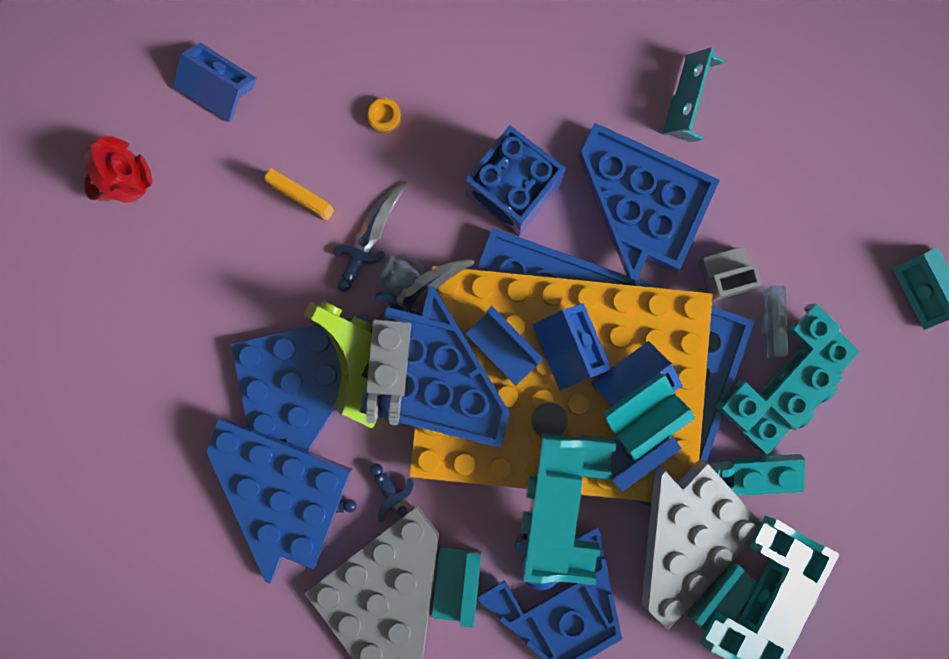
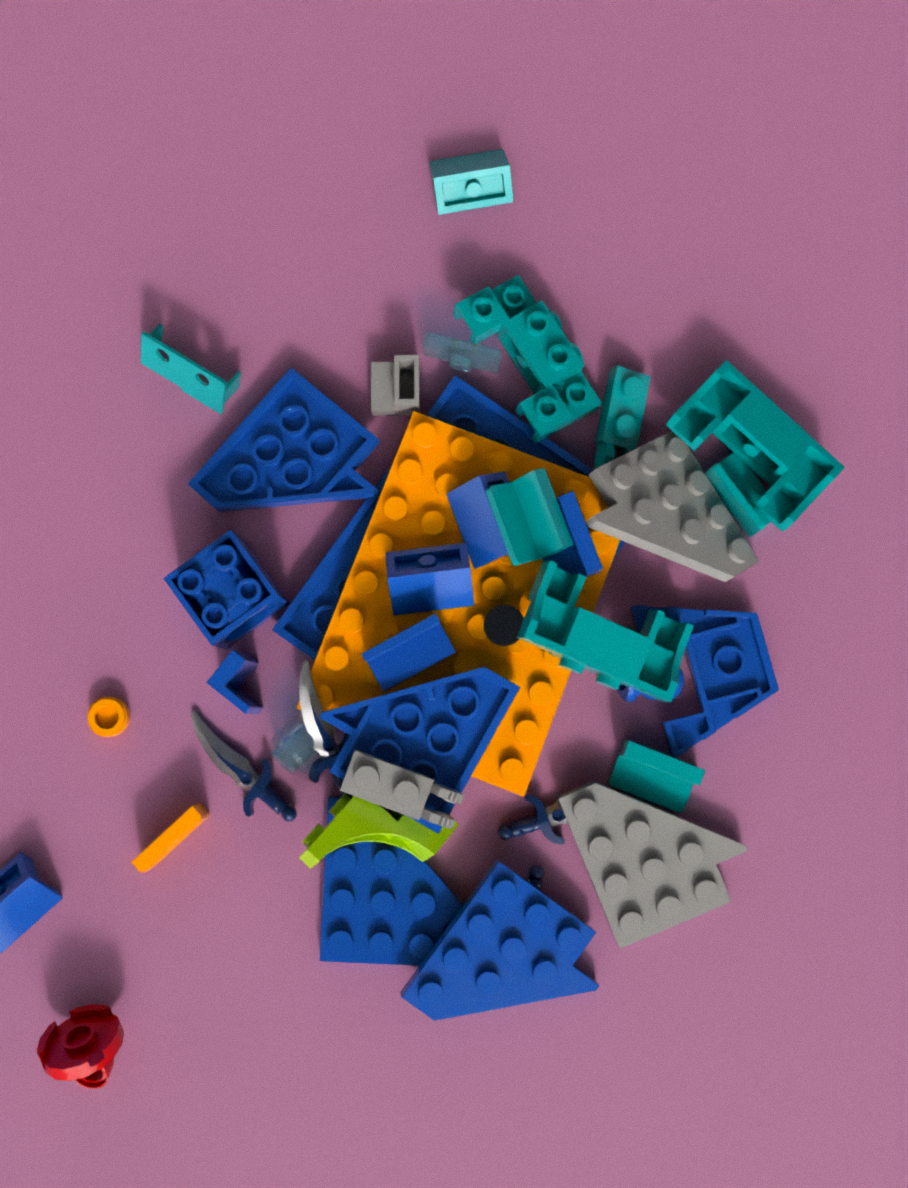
camera: 75 degrees left, 0 degrees up
(443, 204) = (231, 676): none -> blue panel

